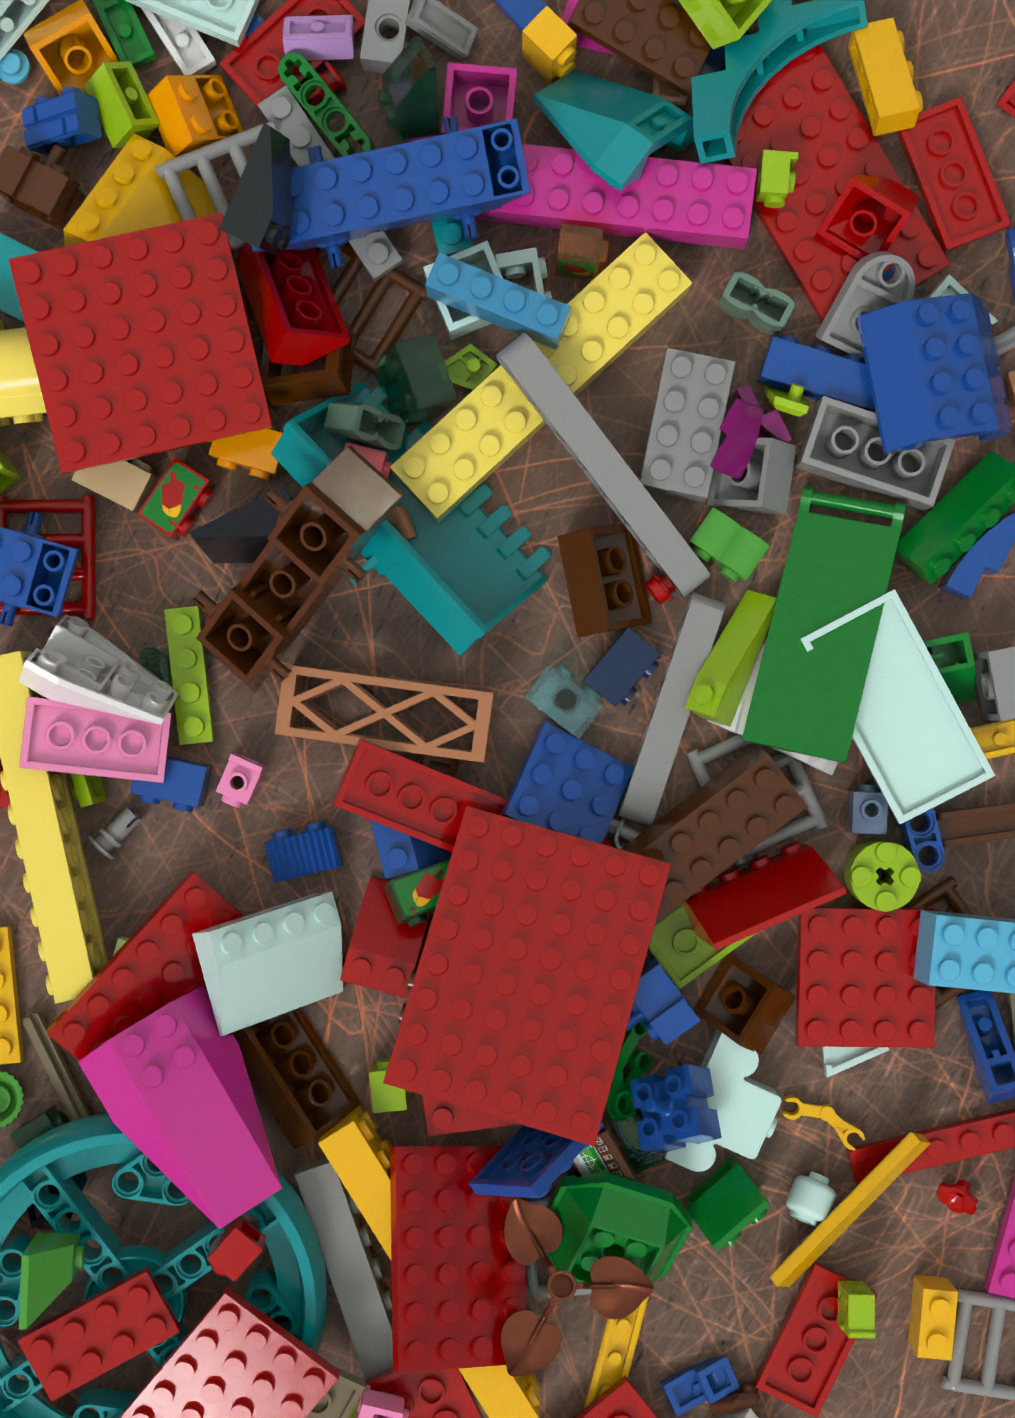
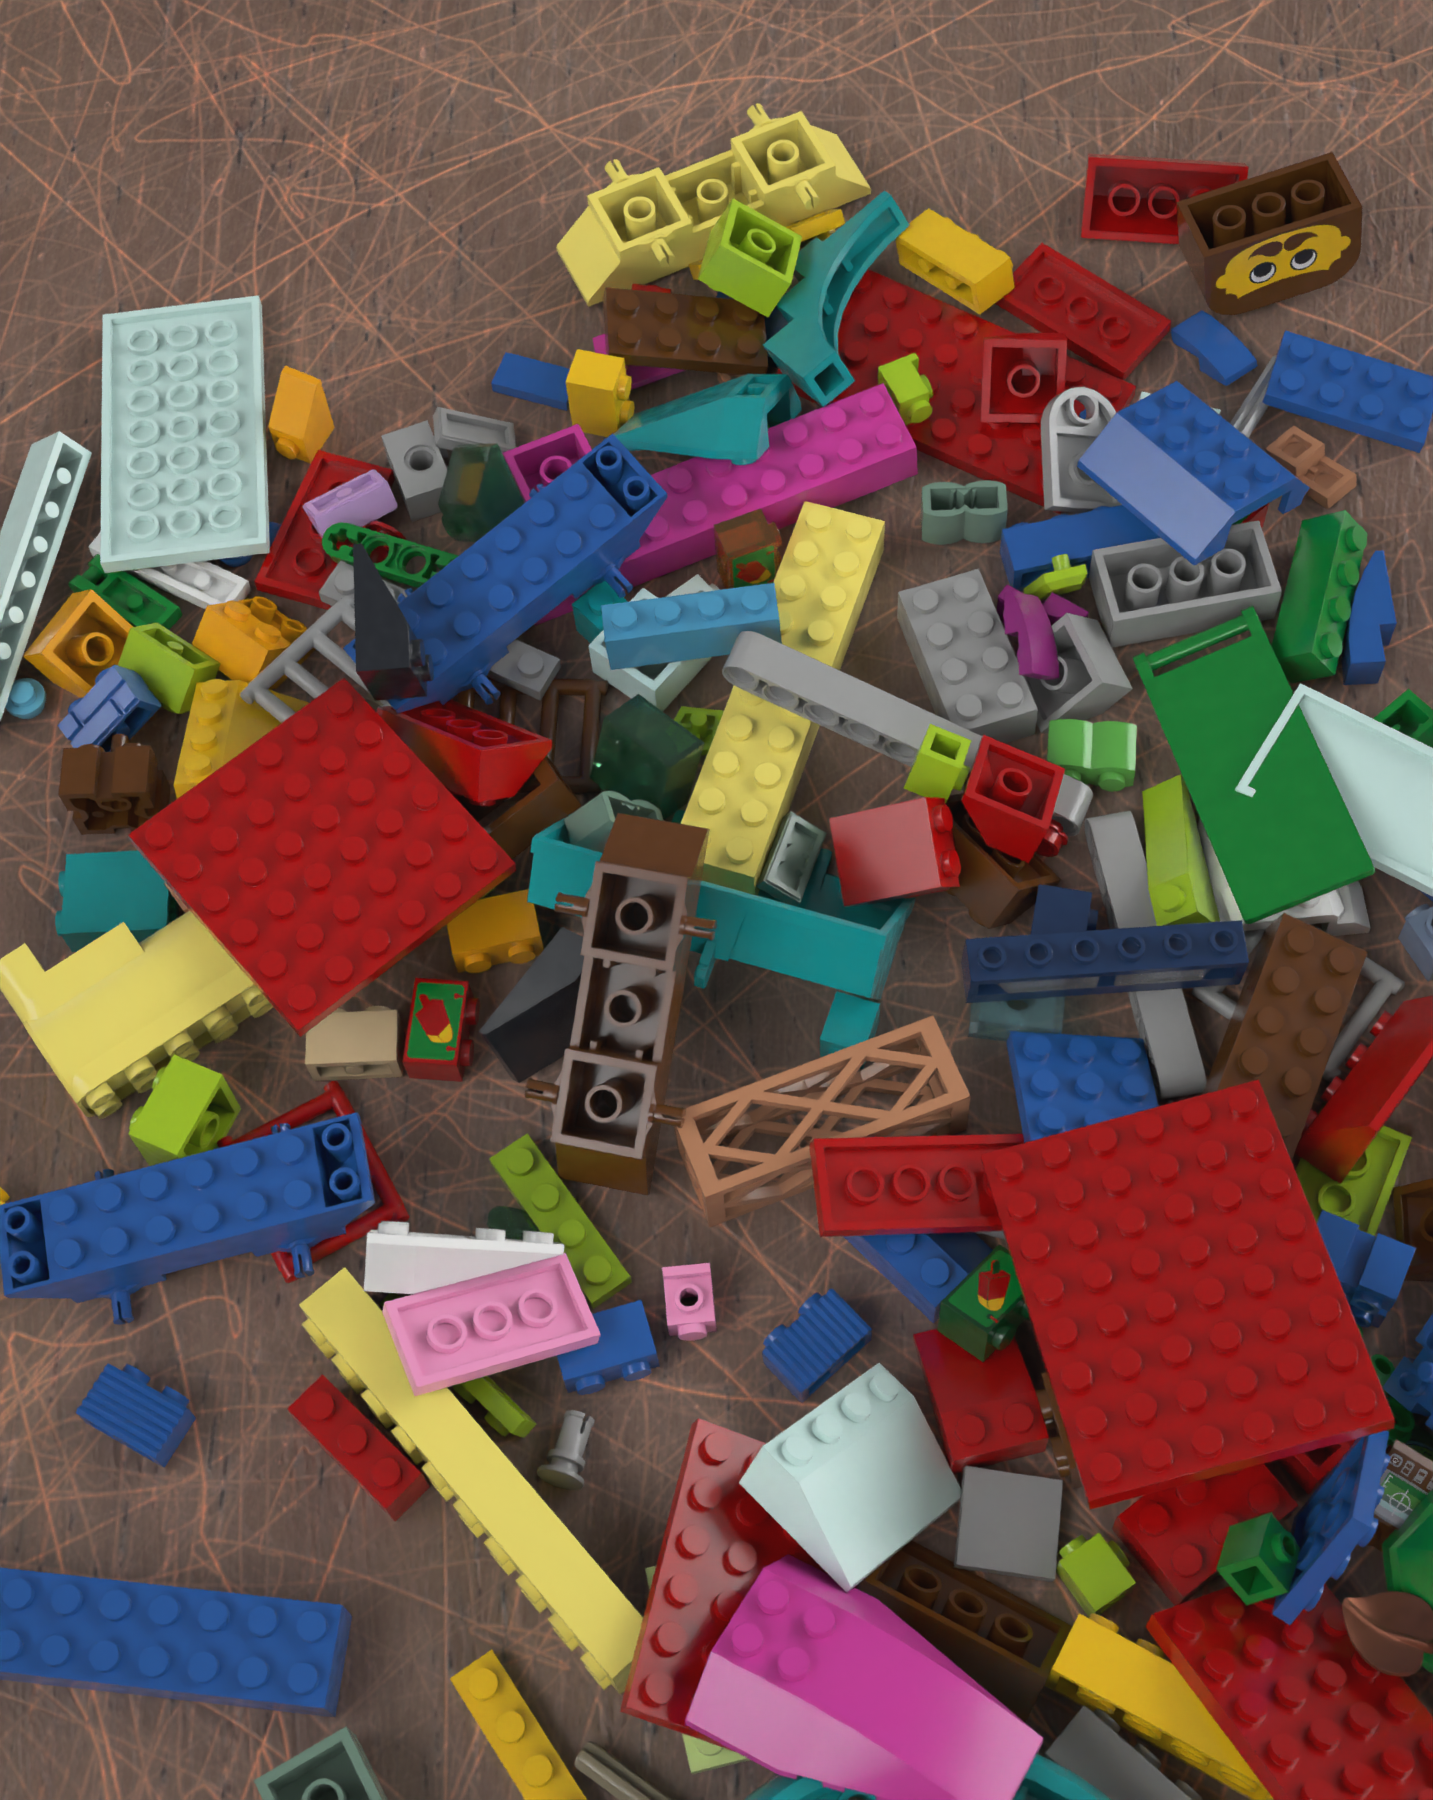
camera: 20 degrees left, 25 degrees down
(357, 1026) = (1008, 1524): none -> light grey tile
(441, 659) = (849, 1023): none -> teal brick
(476, 510) = (791, 859): none -> sand green plate
(480, 1148) = (1258, 1558): none -> green brick
(543, 555) = (895, 851): none -> red brick
(605, 512) = (939, 764): none -> lime brick
(631, 714) = (1104, 961): none -> dark blue piece
(644, 559) = (1011, 797): none -> red slope

